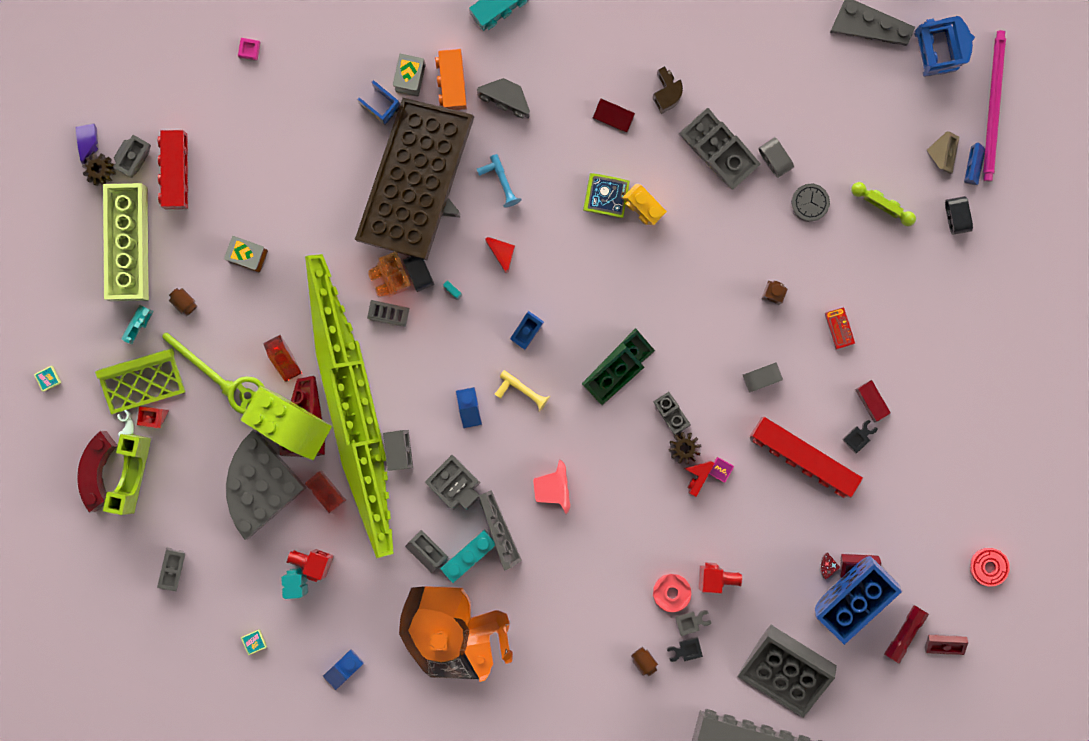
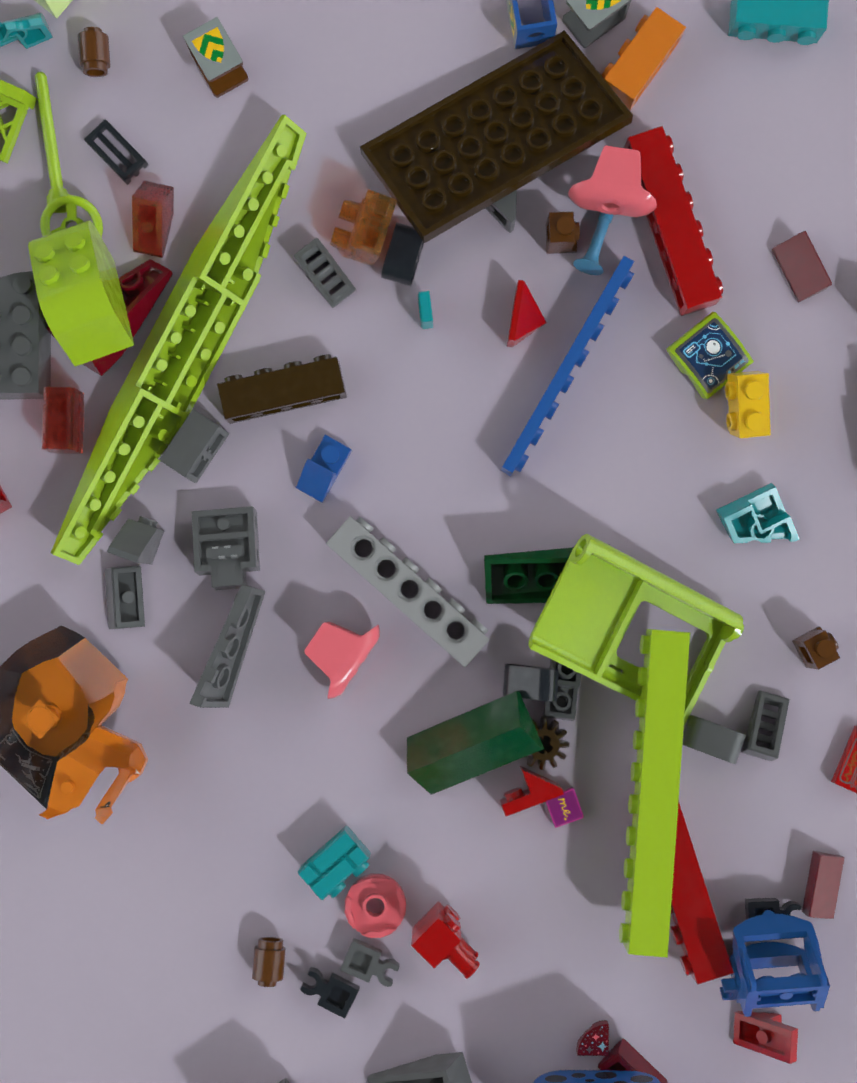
camera: 45 degrees right, 0 degrees up
(251, 342) = (133, 169): none -> black tile
(411, 517) = (137, 541): none -> dark grey slope
(416, 387) = (282, 389): none -> dark brown brick
(468, 556) = (165, 647): teal brick -> none
(486, 197) = (562, 233): none -> reddish brown brick
(492, 155) = (615, 185): none -> coral piece
(506, 96) = (691, 130): dark grey slope -> none
(510, 380) = (401, 478): light yellow piece -> none
(527, 330) = (474, 434): blue slope -> none
(533, 146) = (674, 224): none -> red brick
(543, 251) = (575, 356): none -> blue plate
(609, 436) = (344, 544): none -> light grey brick
(635, 589) = (335, 863): none -> teal brick
(651, 477) = (472, 743): none -> dark green slope
(654, 363) = (596, 605): none -> lime piece
(654, 424) = (531, 681): none -> black beam
(695, 253) = (758, 517): none -> teal slope
(755, 424) = (655, 793): none -> lime brick
(790, 364) = (777, 729): none -> dark grey slope
(881, 460) = (802, 988): none -> blue animal
(903, 494) = (766, 1035): none -> red slope

